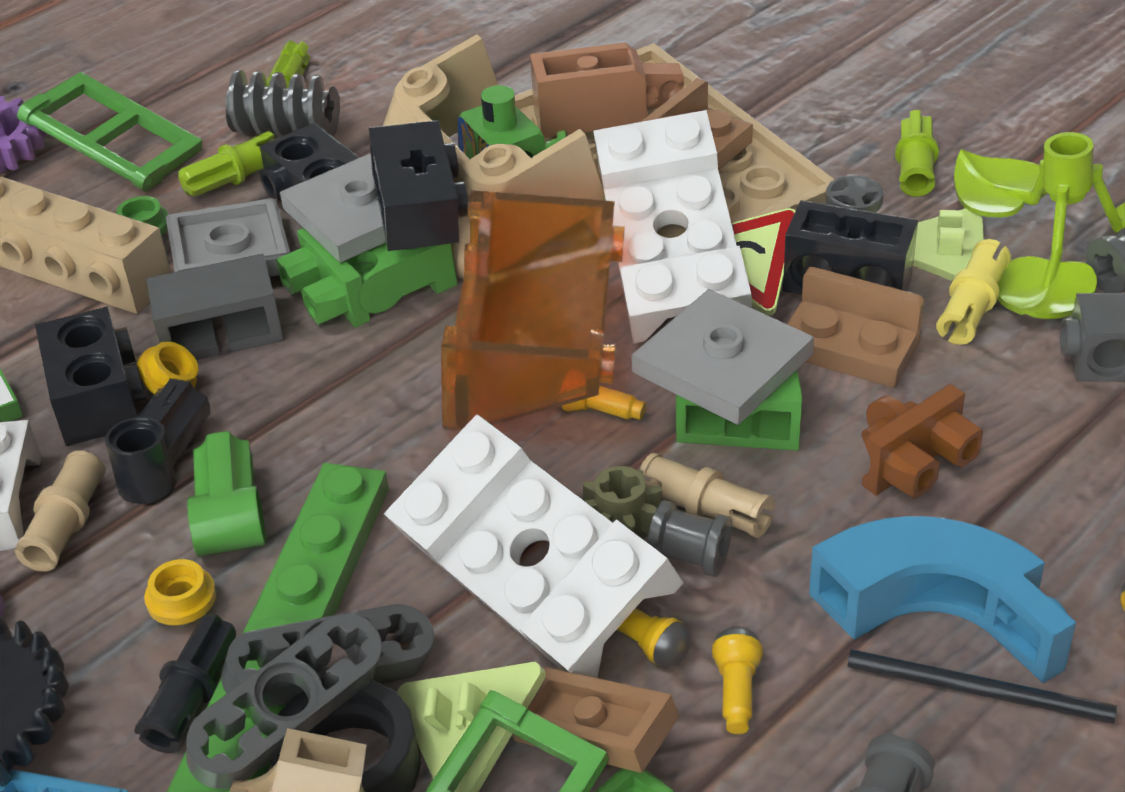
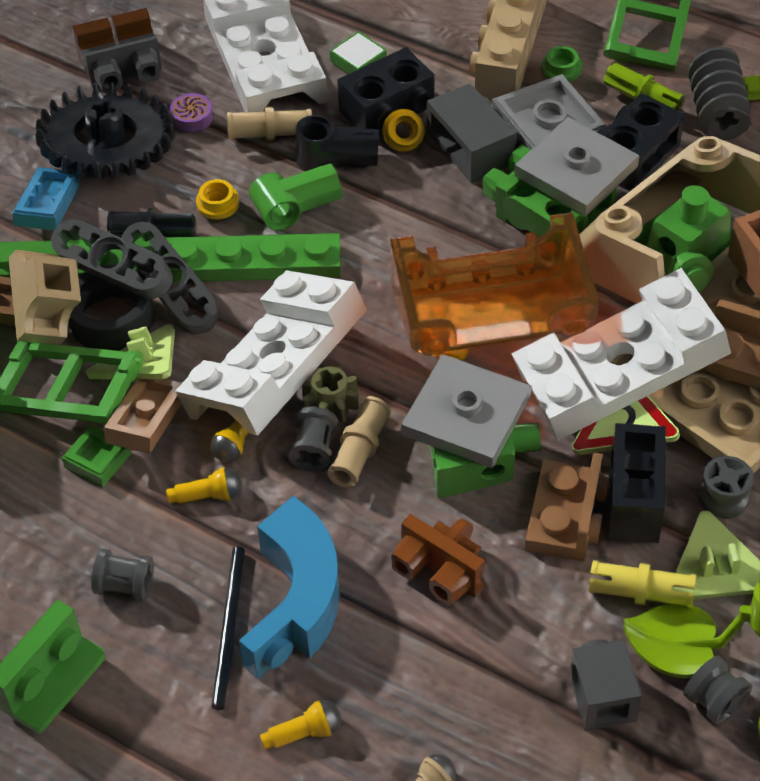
camera: 75 degrees right, 10 degrees up
(416, 185) = (574, 178): black brick -> none

